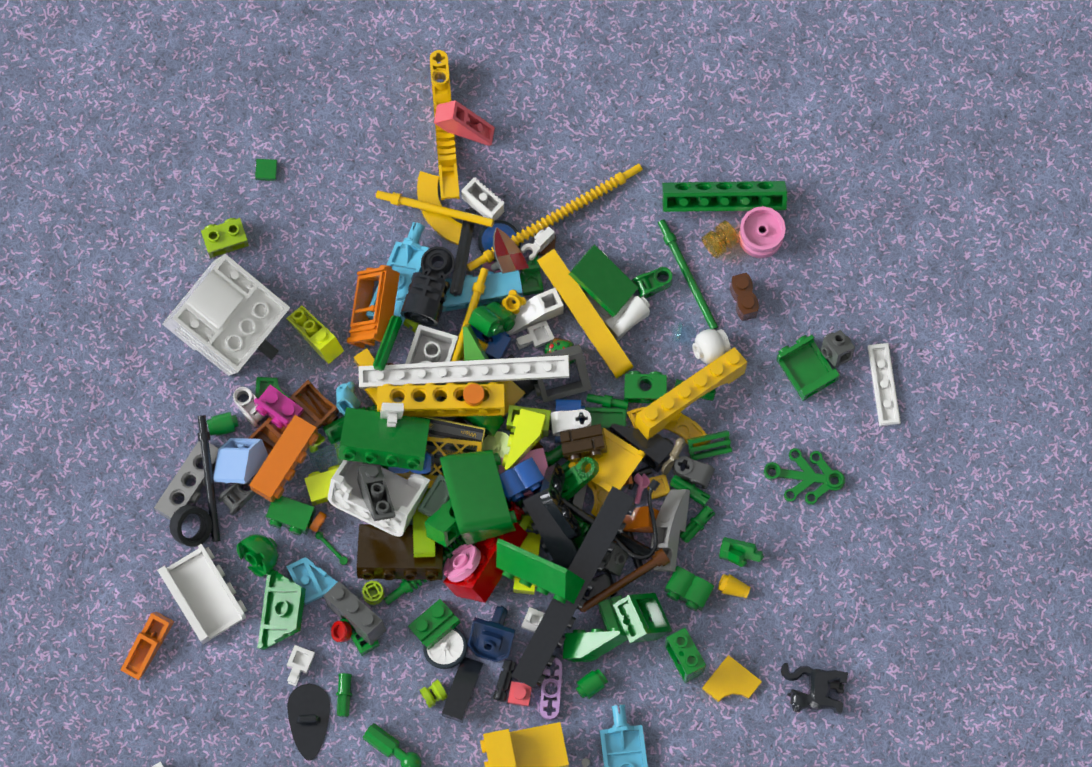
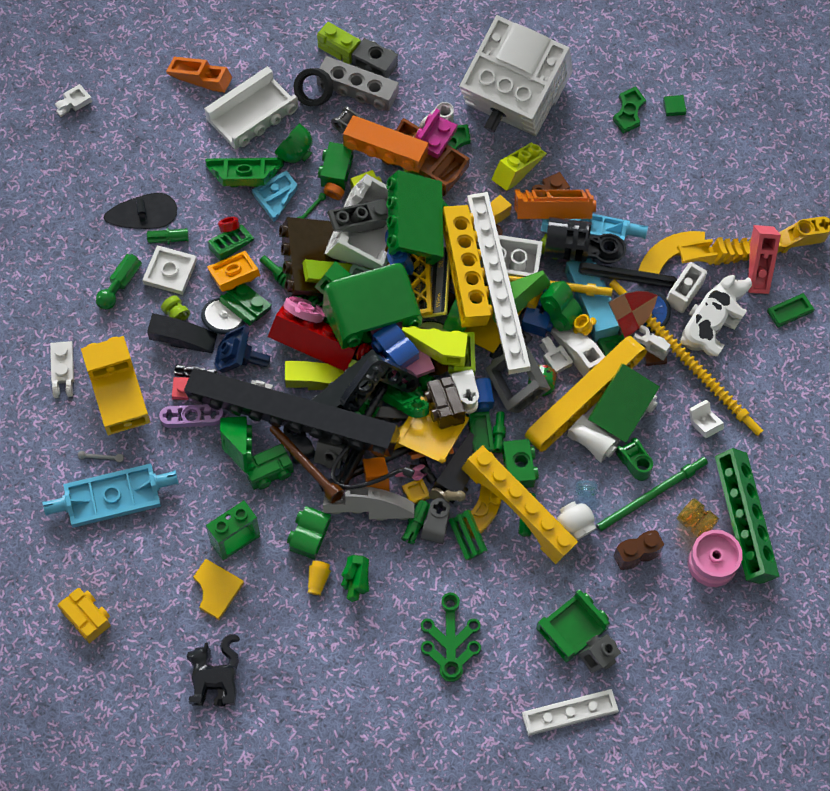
camera: 80 degrees right, 10 degrees down
(135, 493) = (337, 42): none -> lime brick
(159, 471) = (374, 58): none -> dark grey brick
(204, 437) = (395, 78): black bar -> none
(222, 424) = (416, 102): green brick -> none
(224, 237) = (598, 79): lime brick -> none
(239, 460) = (380, 110): light blue slope -> none
(254, 211) = (627, 117): none -> green tile
(299, 661) = (196, 195): white plate -> none
(342, 305) = (553, 182): none -> dark orange plate
(346, 397) = (455, 194): medium azure piece -> none
(363, 619) = (236, 234): dark grey arch -> none
(373, 597) = (272, 249): lime wheel -> none
(385, 695) = (169, 270): none -> white plate
(387, 343) = (515, 212): green axle -> none
(391, 412) = (440, 216): white tile -> none
(397, 199) = (670, 217): yellow bar -> none
(402, 631) = (233, 271): none -> light orange plate
(473, 394) = (472, 286): orange tile -> none
(513, 181) = (715, 310): none -> white animal
(515, 111) = (790, 310): none -> green tile
(538, 572) = (299, 370): green slope -> none
(591, 684) = (198, 450): green brick -> none
(623, 212) = (704, 420): none -> white bracket
(637, 628) = (252, 472): green window -> none
(697, 524) = (380, 533): green axle -> none

